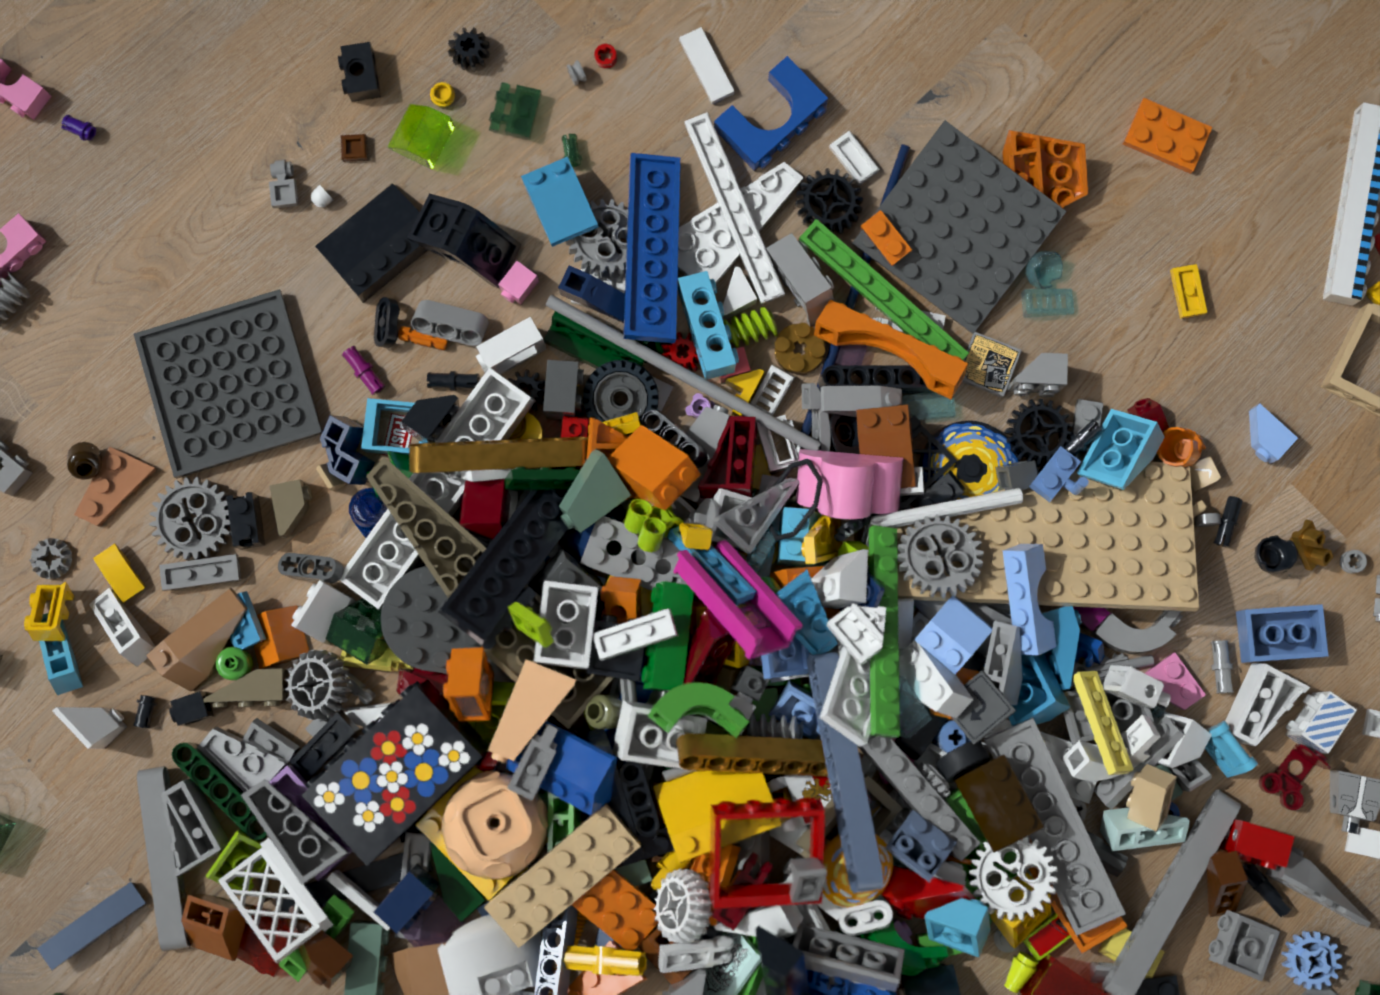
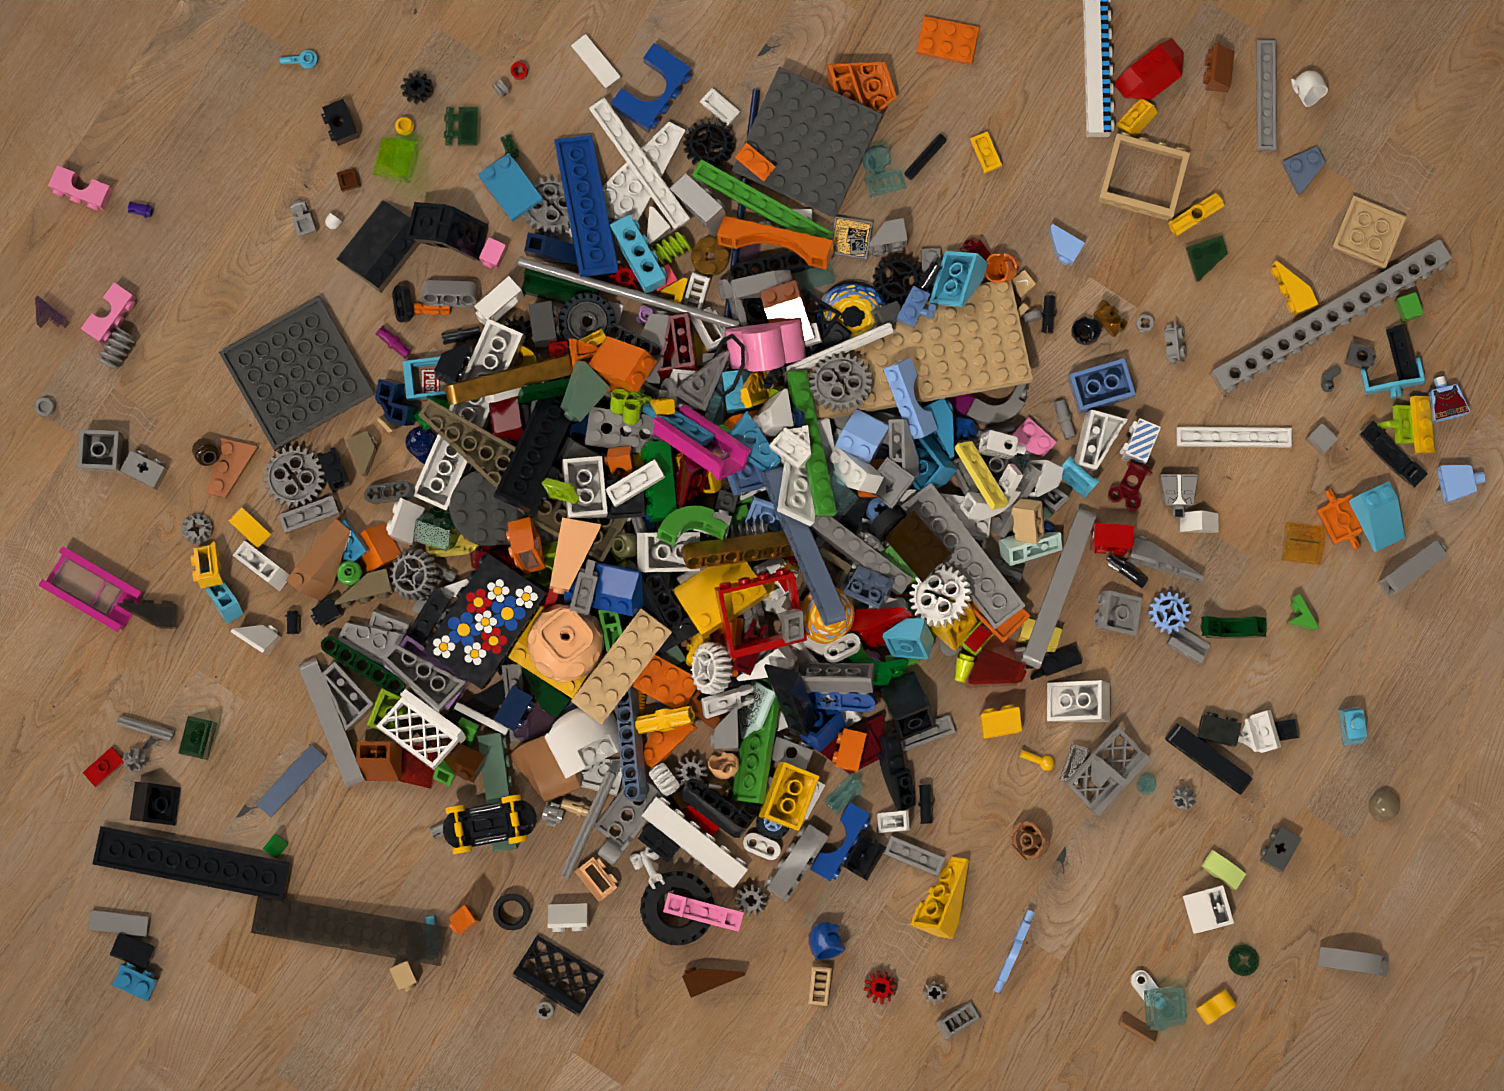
camera: 10 degrees left, 0 degrees up
(1107, 279) = (925, 156): none -> black axle
(1225, 882) = (1093, 570): reddish brown slope -> none

